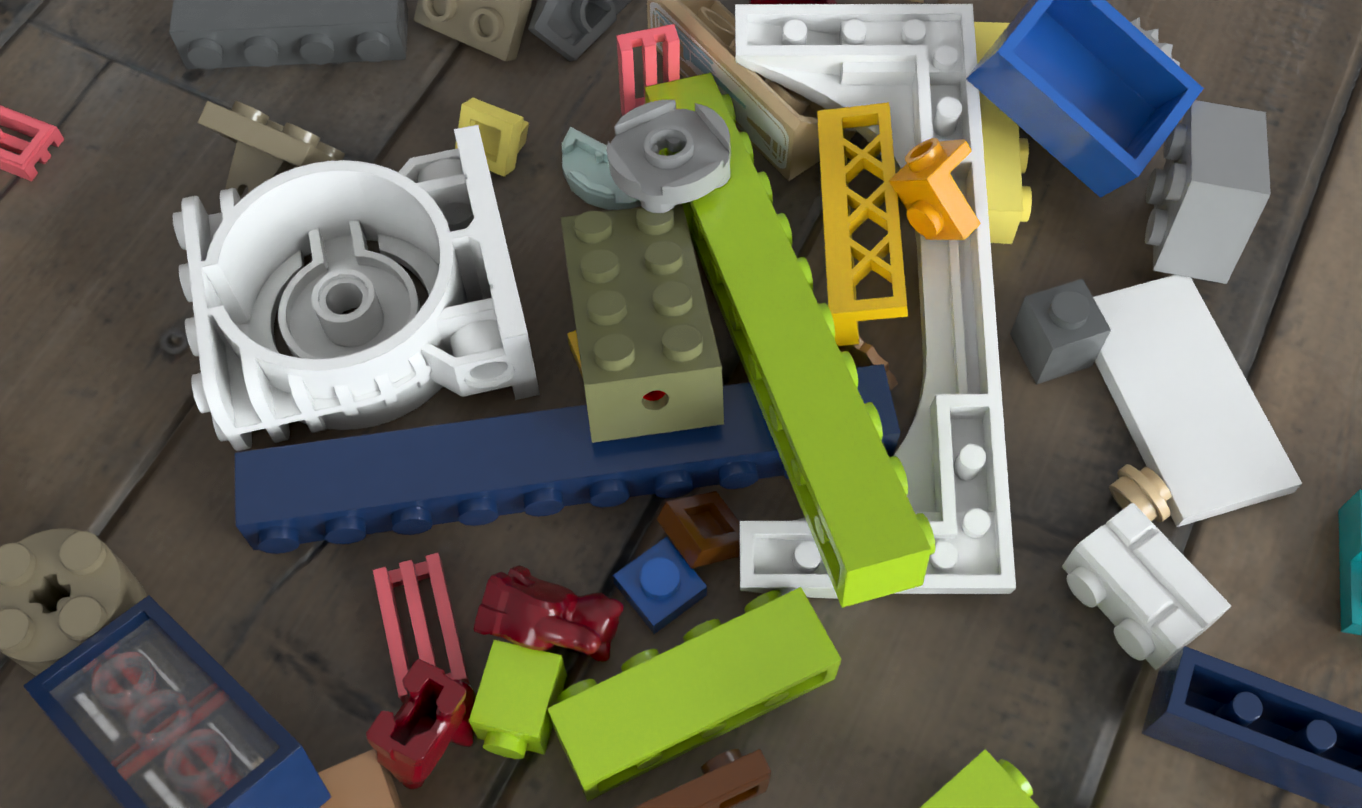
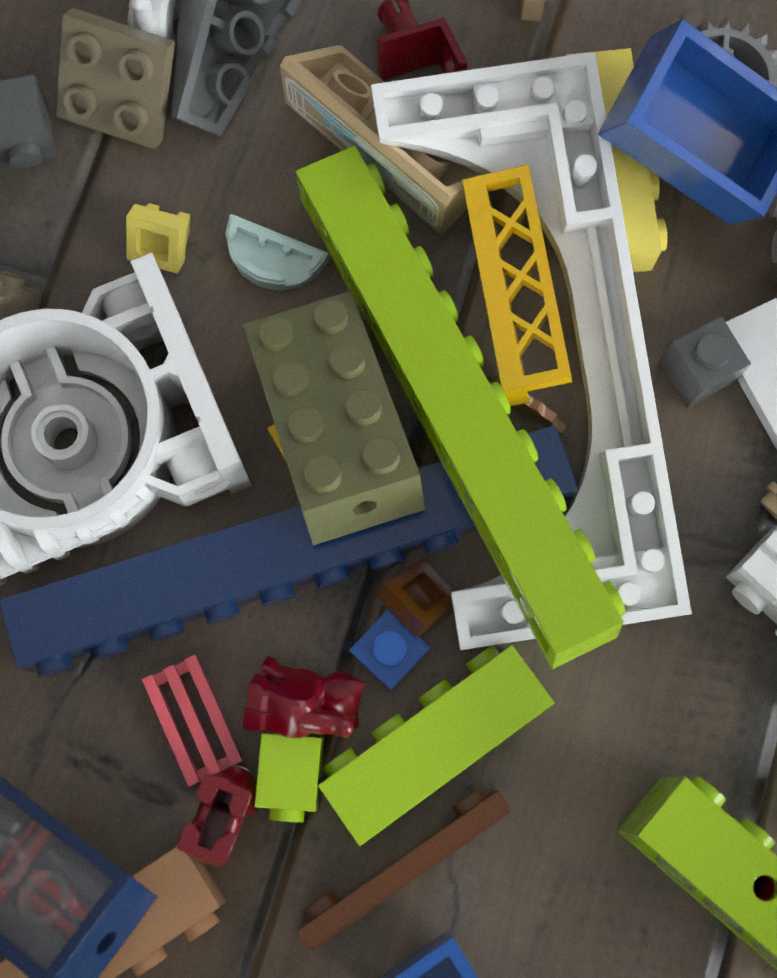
camera: 10 degrees left, 15 degrees up
(647, 39) = (293, 132): coral tile -> none
(673, 179) = (338, 281): light grey plate -> none
(930, 193) = (577, 260): light orange bracket -> none

